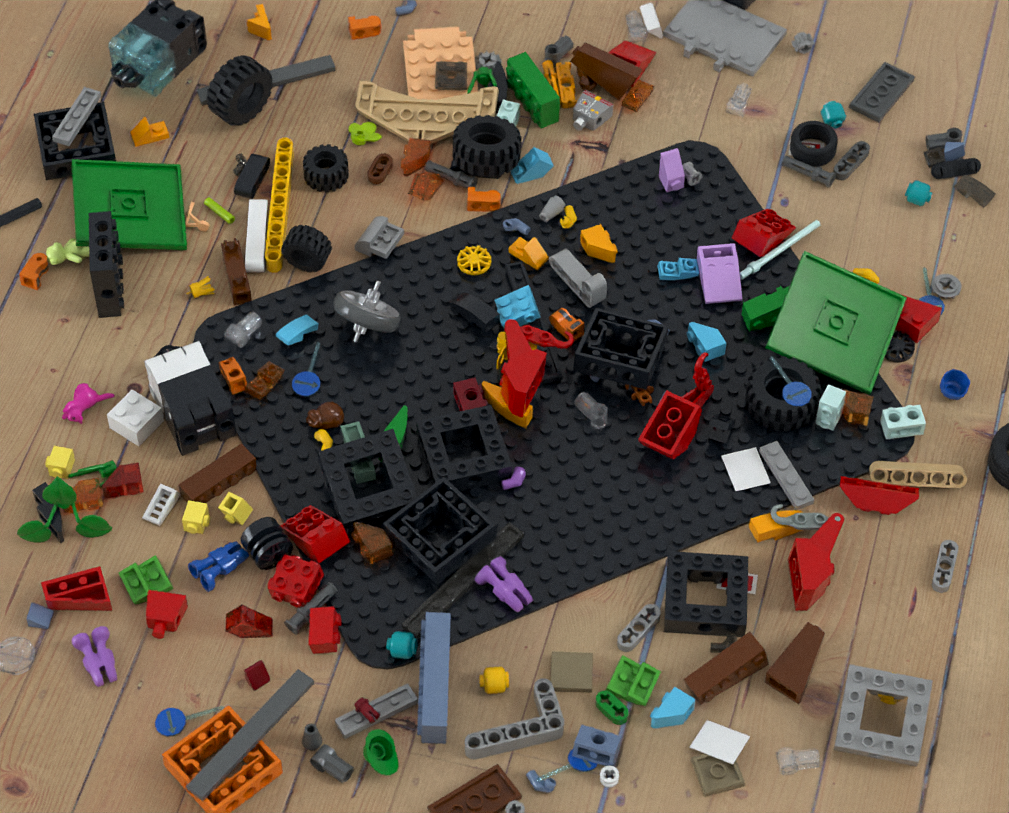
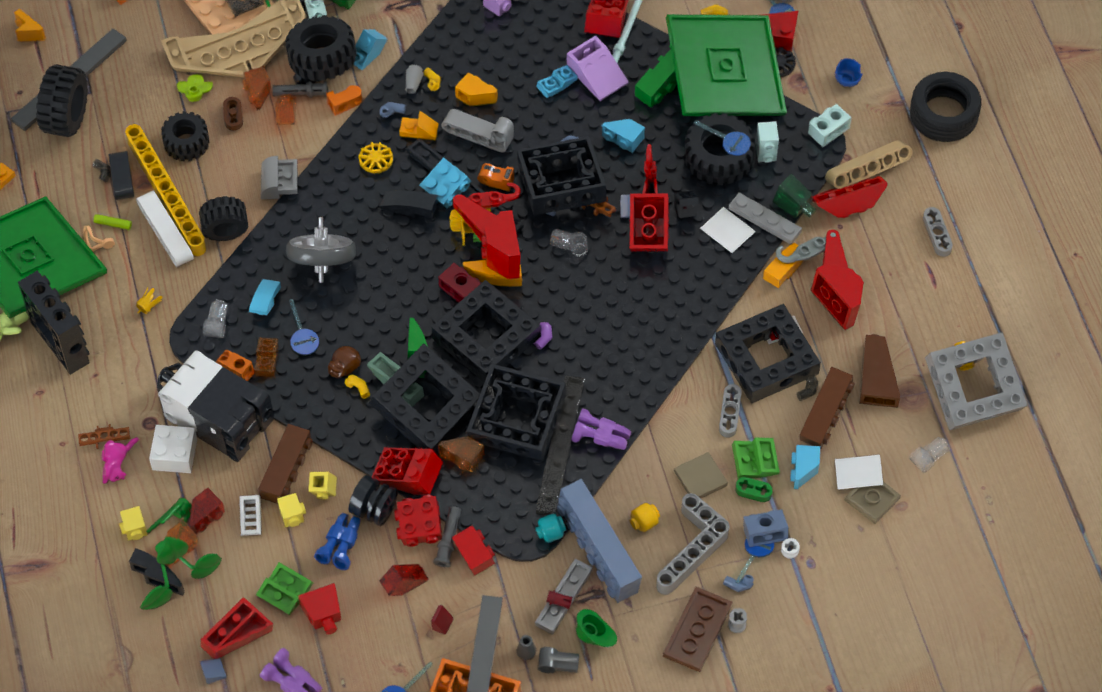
camera: 30 degrees left, 5 degrees up
(97, 378) = (108, 430): none -> dark orange piece
(236, 272) = (170, 271): reddish brown brick -> none
(823, 468) = (794, 197): none -> clear green torso
(857, 407) = (788, 130): clear orange slope -> none

